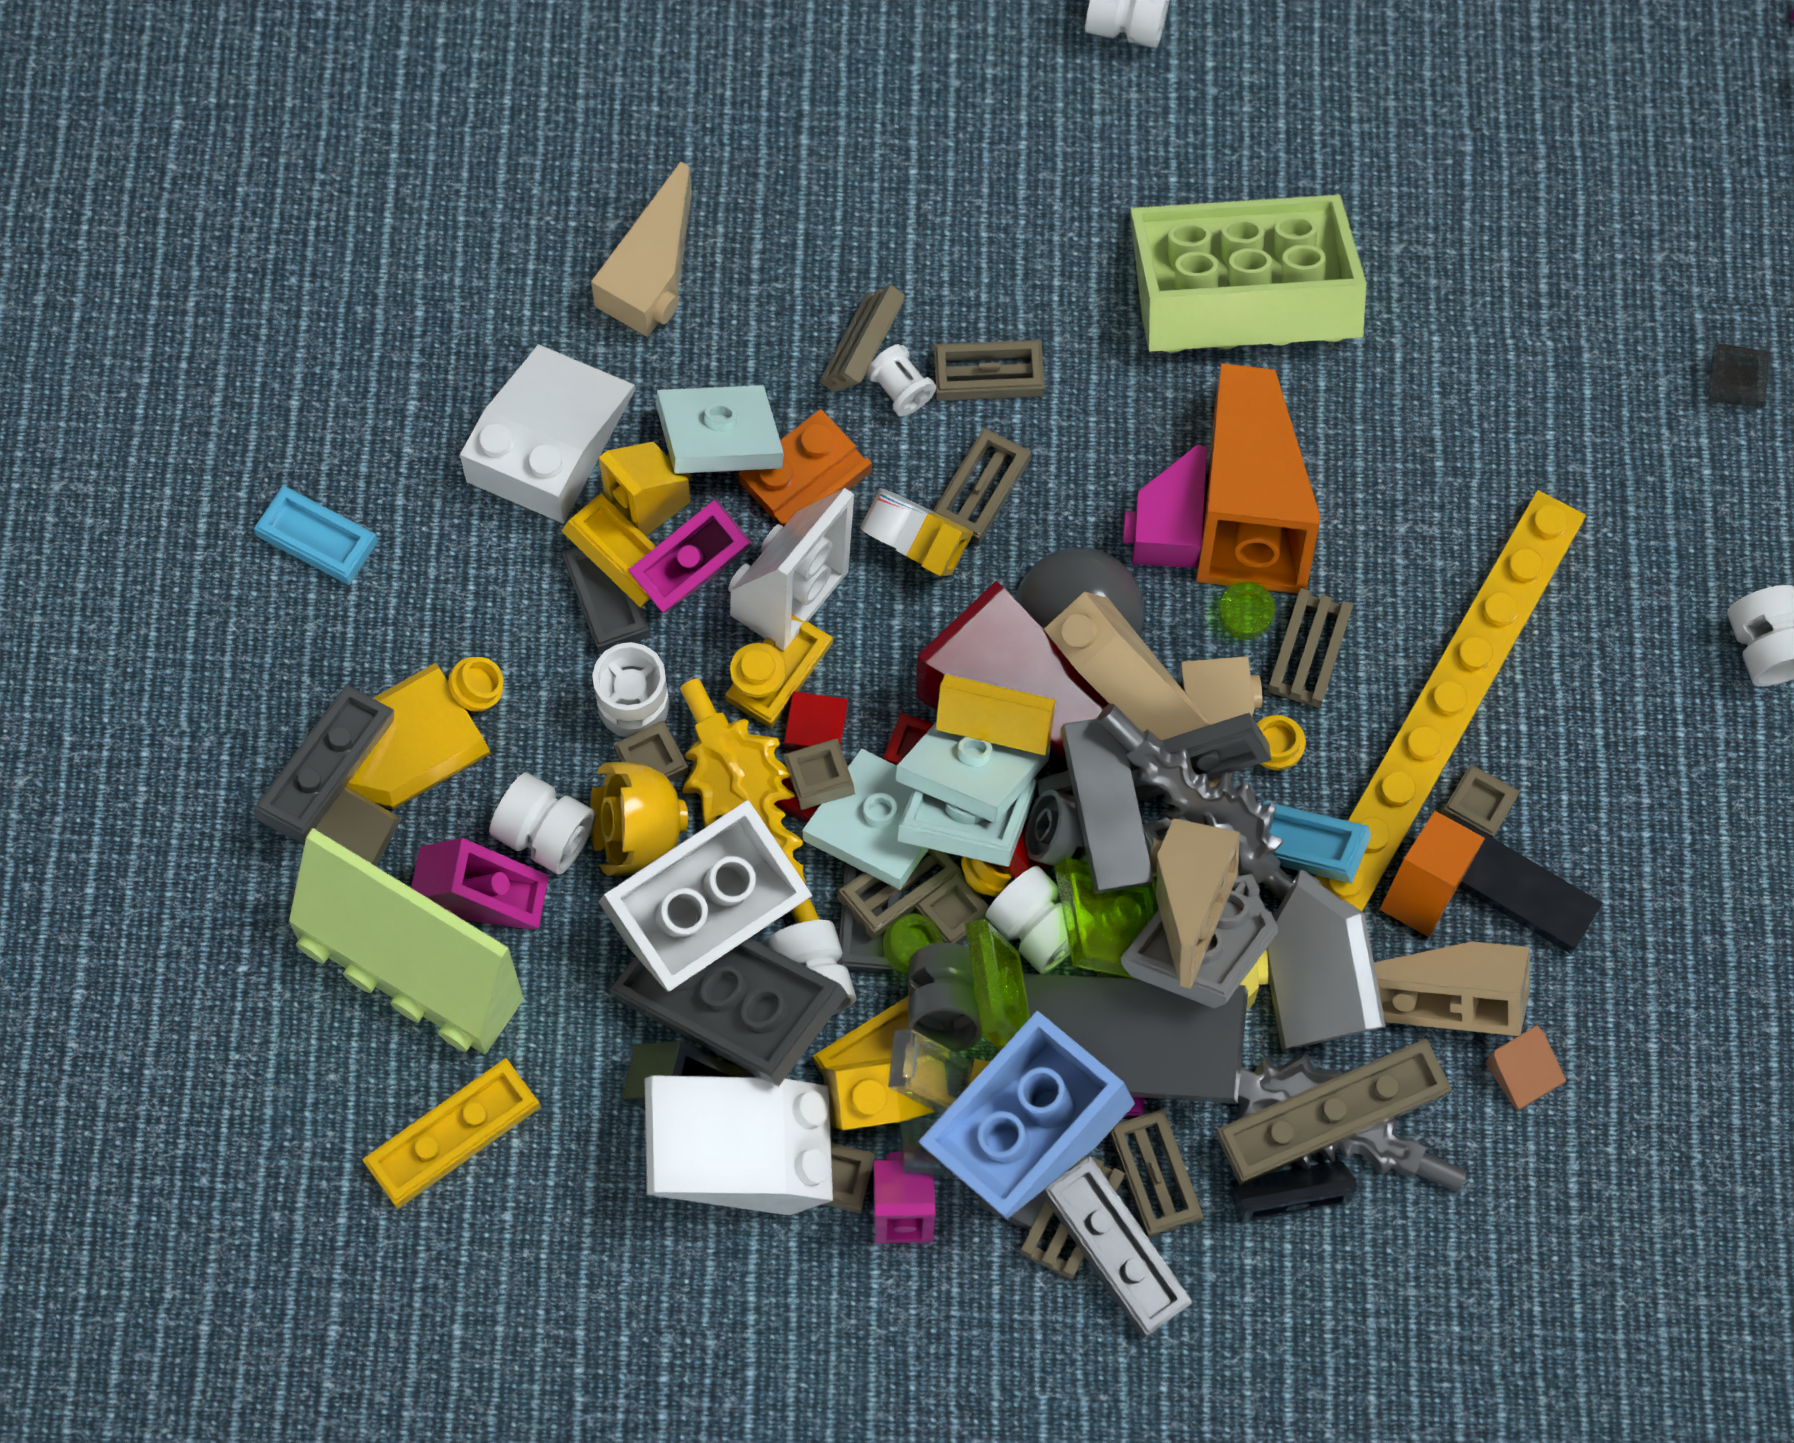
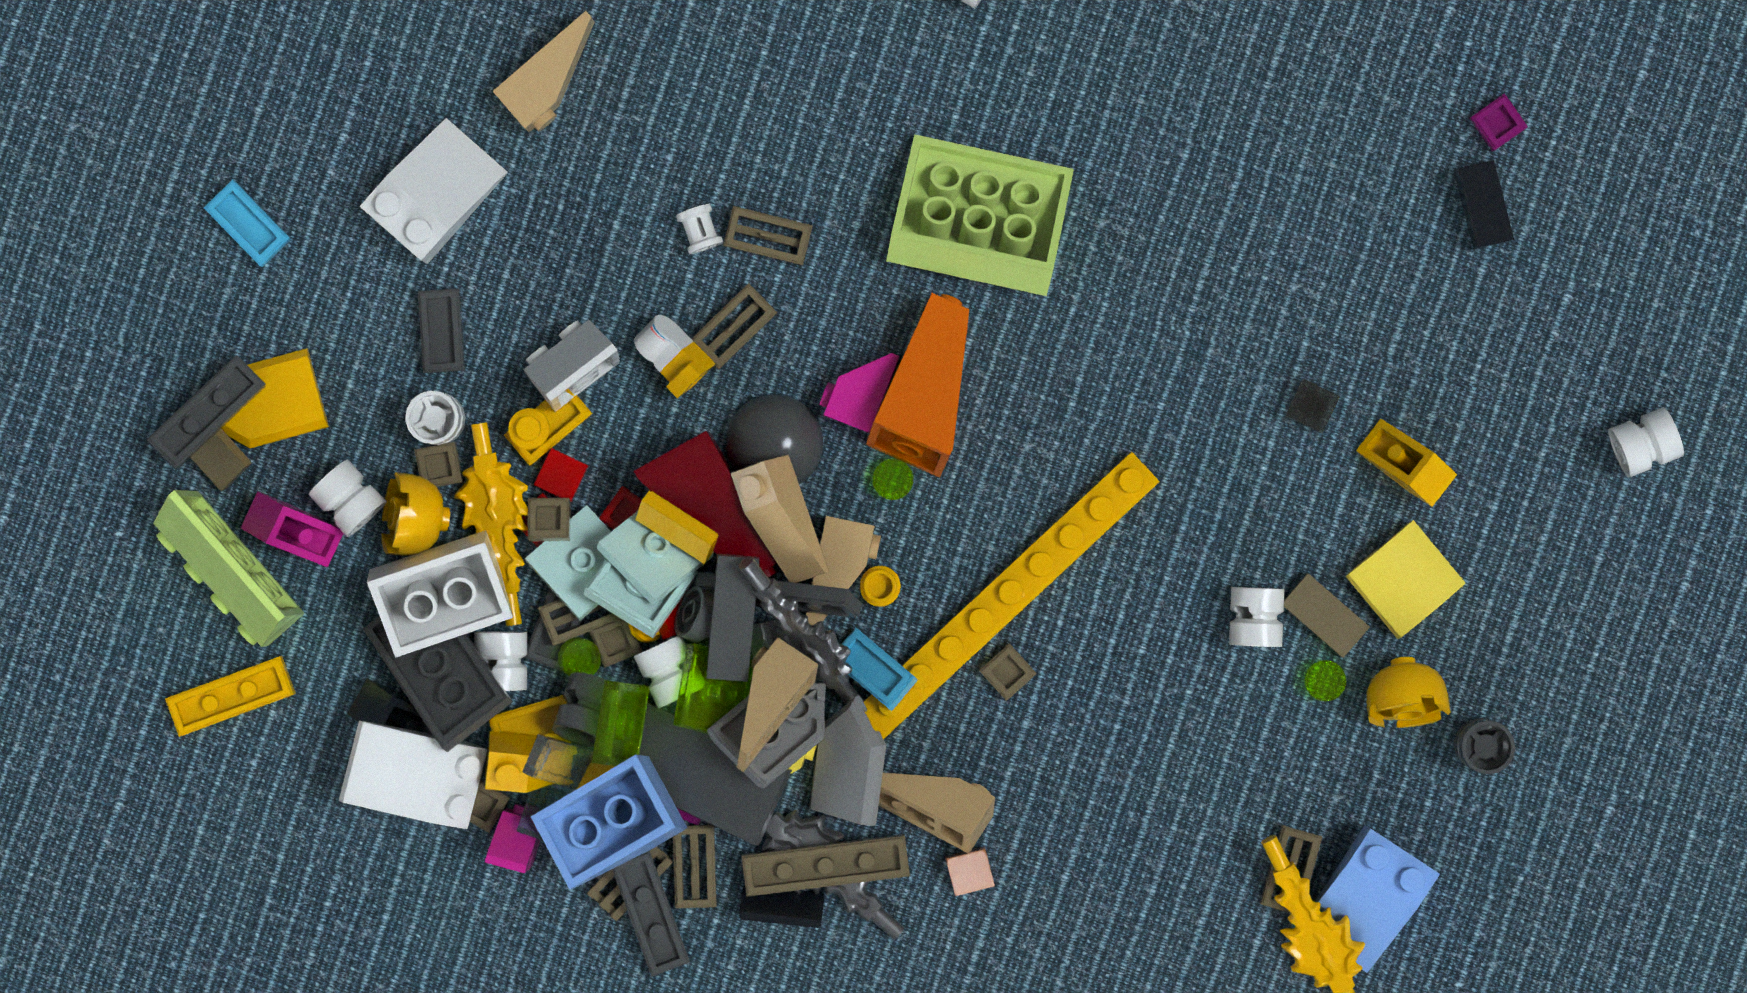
camera: 15 degrees right, 20 degrees up
(476, 683) = (330, 376): yellow plate -> none
(610, 543) = (458, 305): yellow tile -> none
(643, 485) = (489, 262): yellow slope -> none
(691, 556) = (507, 328): dark pink slope -> none
(719, 429) = (554, 234): light aqua plate -> none
(815, 465) = (610, 278): orange plate -> none
(862, 338) = (681, 188): dark tan tile -> none
(1323, 608) = (948, 493): dark tan tile -> none
(1431, 873) = (953, 716): orange slope -> none
(1528, 893) = (1008, 738): black tile -> none

